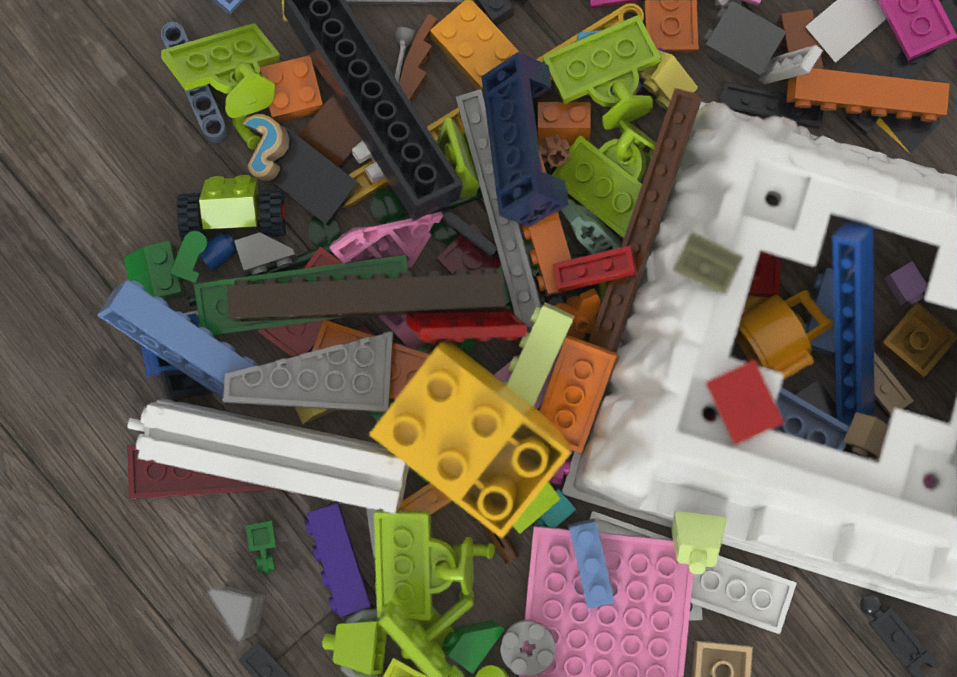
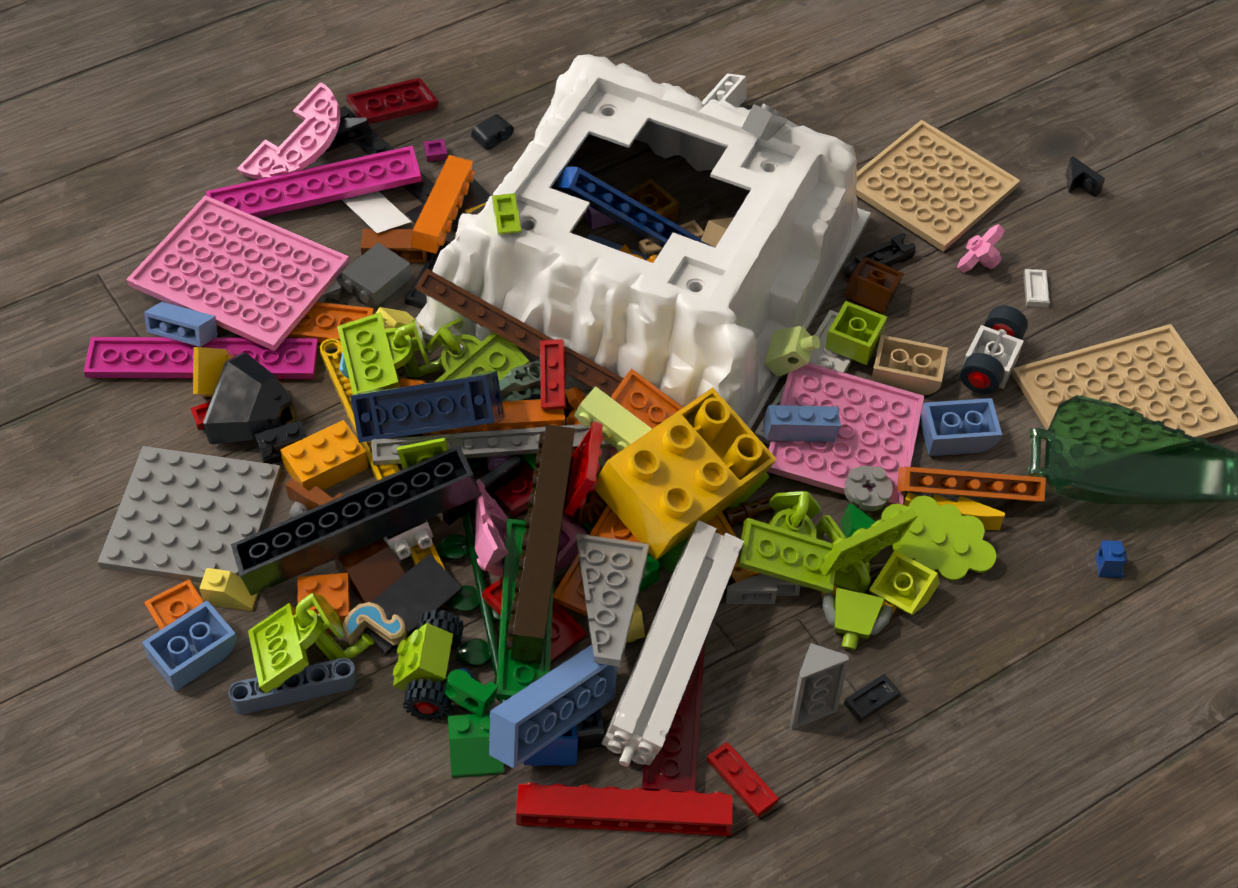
camera: 85 degrees left, 30 degrees down
(103, 431) = (624, 809): none -> red brick
(153, 544) = (742, 779): none -> red plate
(262, 252) = (476, 641): light grey slope -> none
(262, 538) = (747, 686): green plate -> none
(338, 559) = (775, 625): dark purple brick -> none
(708, 263) = (576, 255): olive plate -> none
(744, 402) = (692, 253): red piece -> none
(750, 616) = (855, 332): none -> lime brick
(760, 169) = (506, 214): none -> lime slope
(790, 64) = (410, 231): white tile -> none
(846, 634) = (873, 285): none -> reddish brown slope

